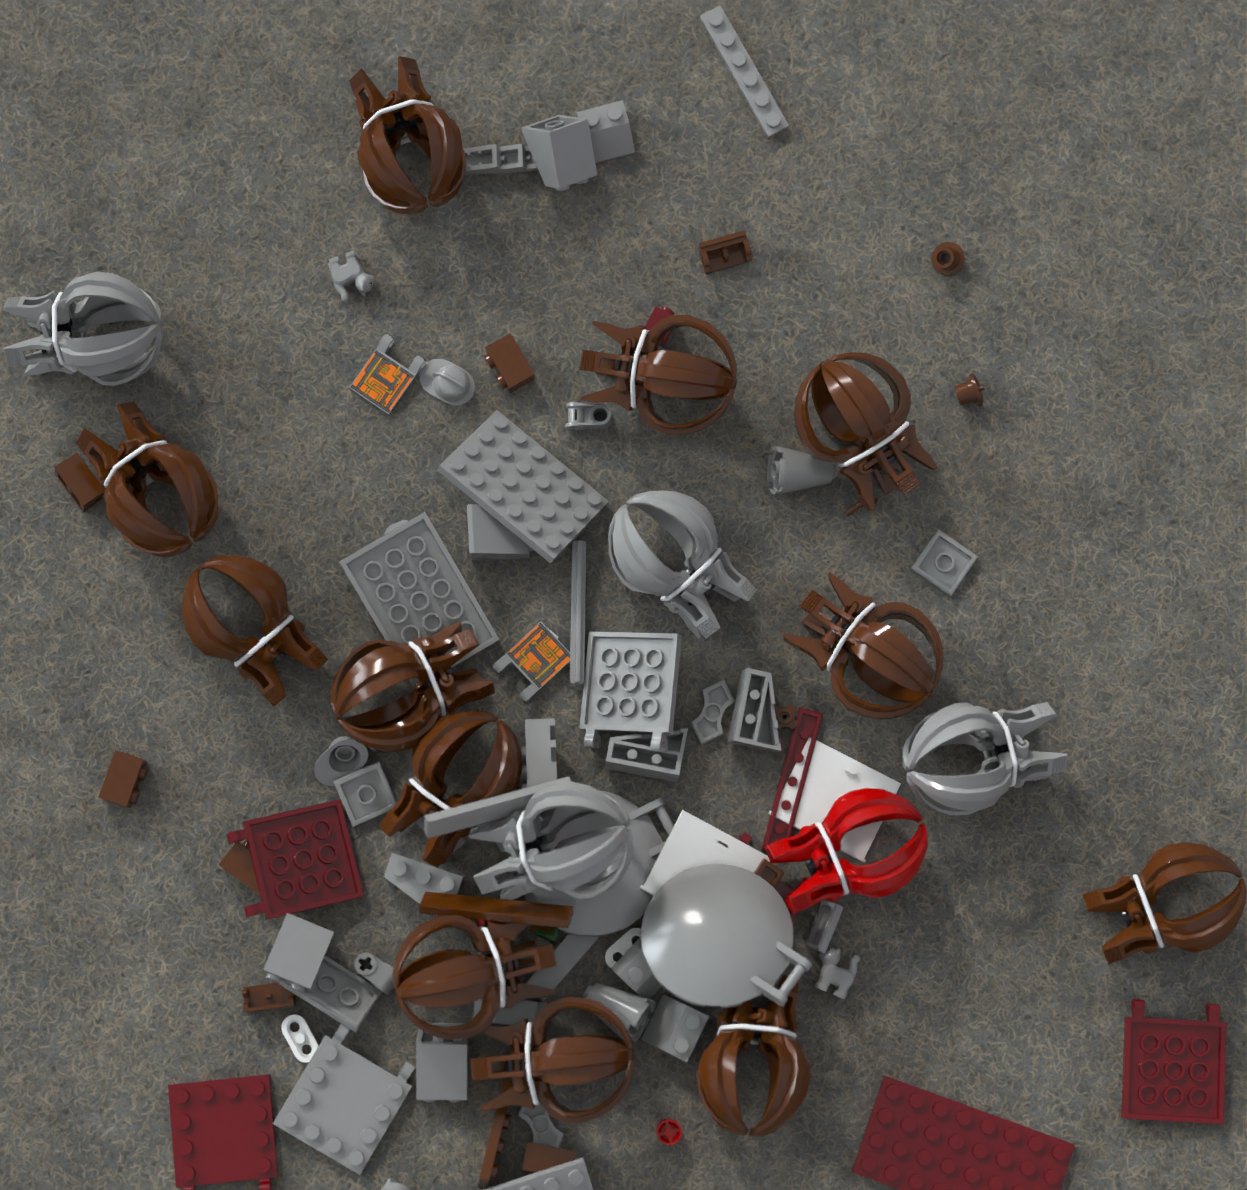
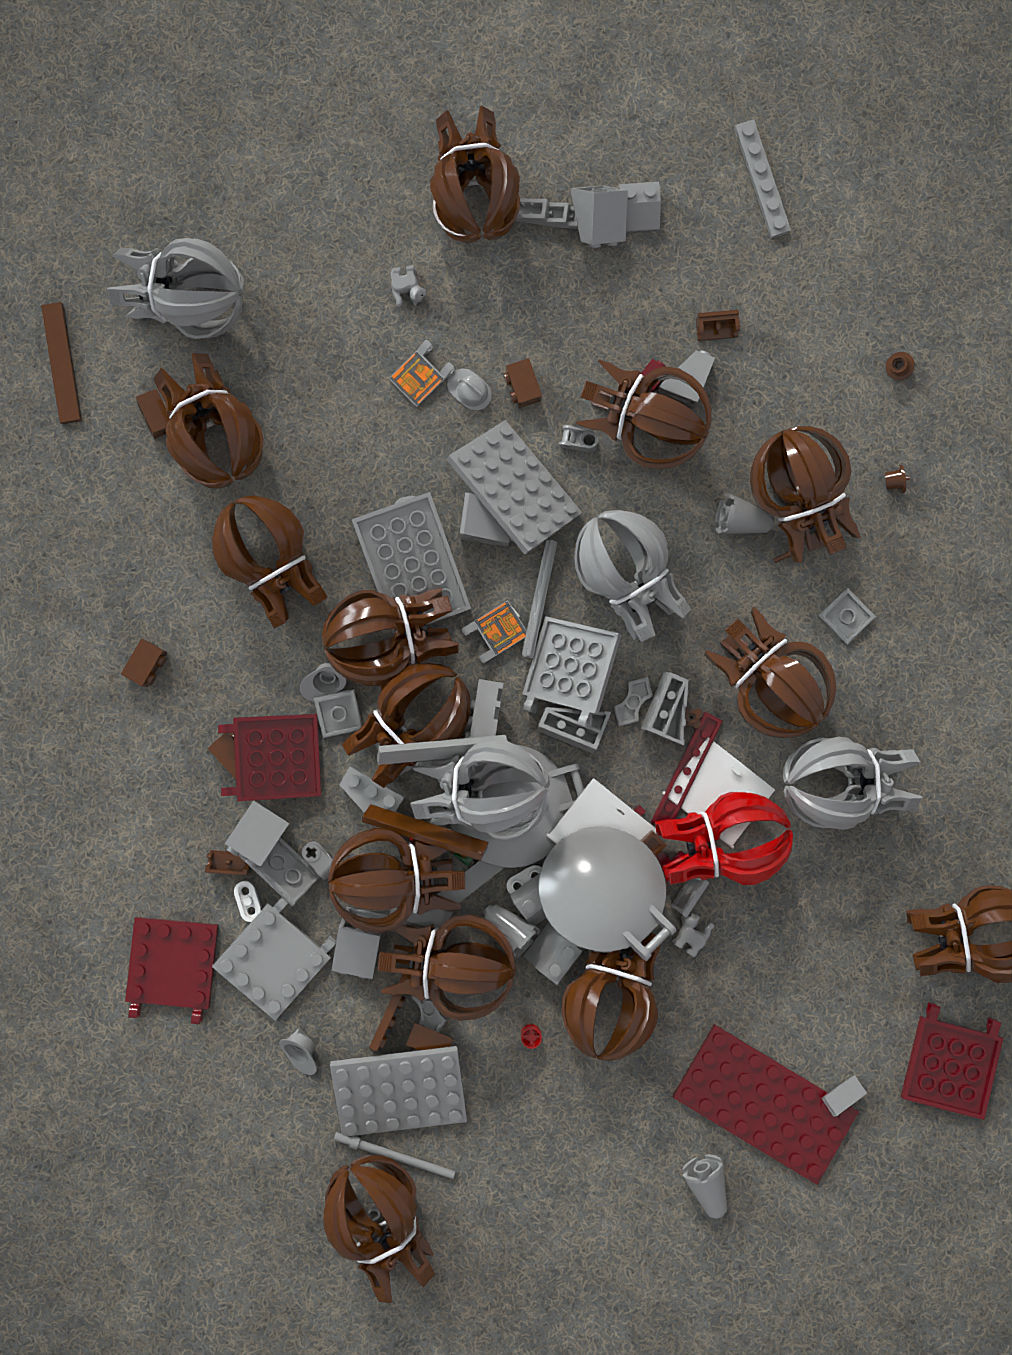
camera: 10 degrees right, 5 degrees up
(708, 307) = (696, 365): none -> light grey slope
(1053, 1128) = (844, 1095): none -> light grey tile

